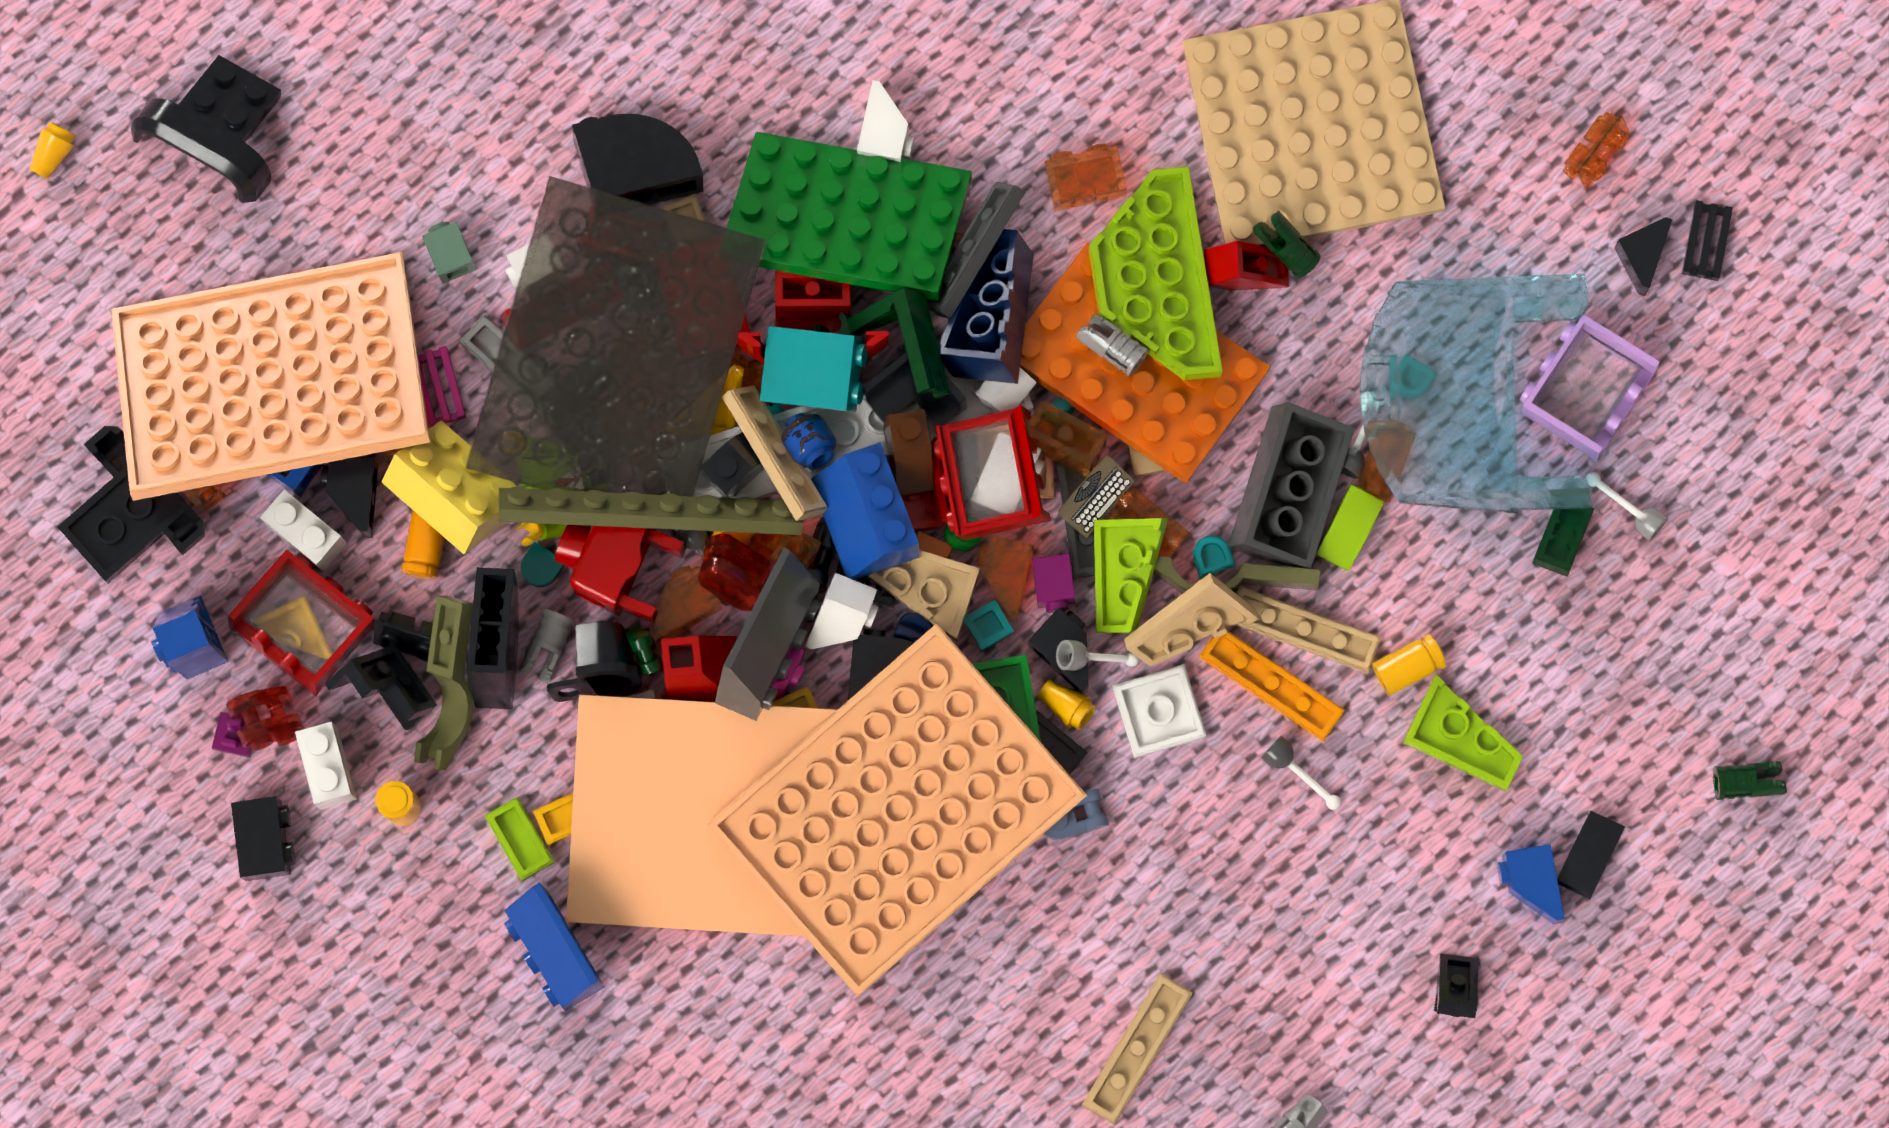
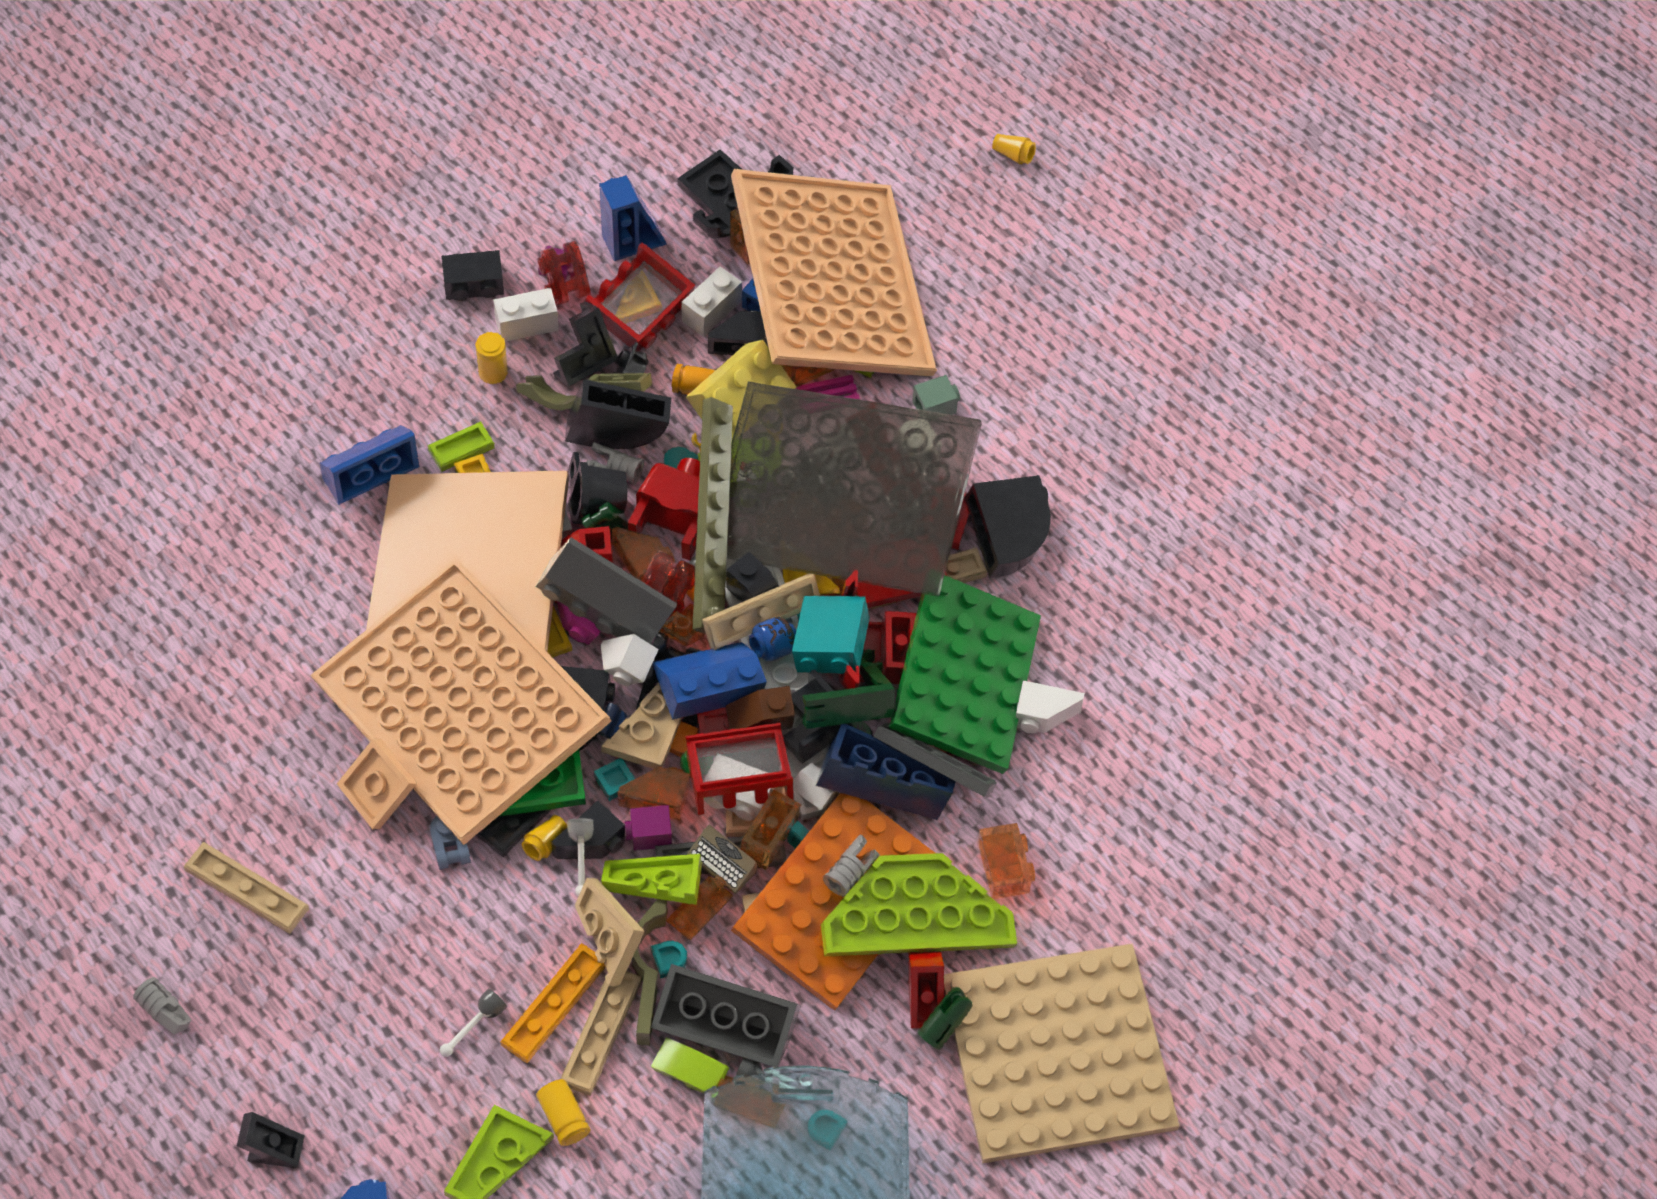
camera: 80 degrees right, 20 degrees down
(216, 123) = (1037, 245): black piece -> none
(1008, 902) = (376, 783): none -> light nougat plate
(1159, 711) = (535, 912): white tile -> none

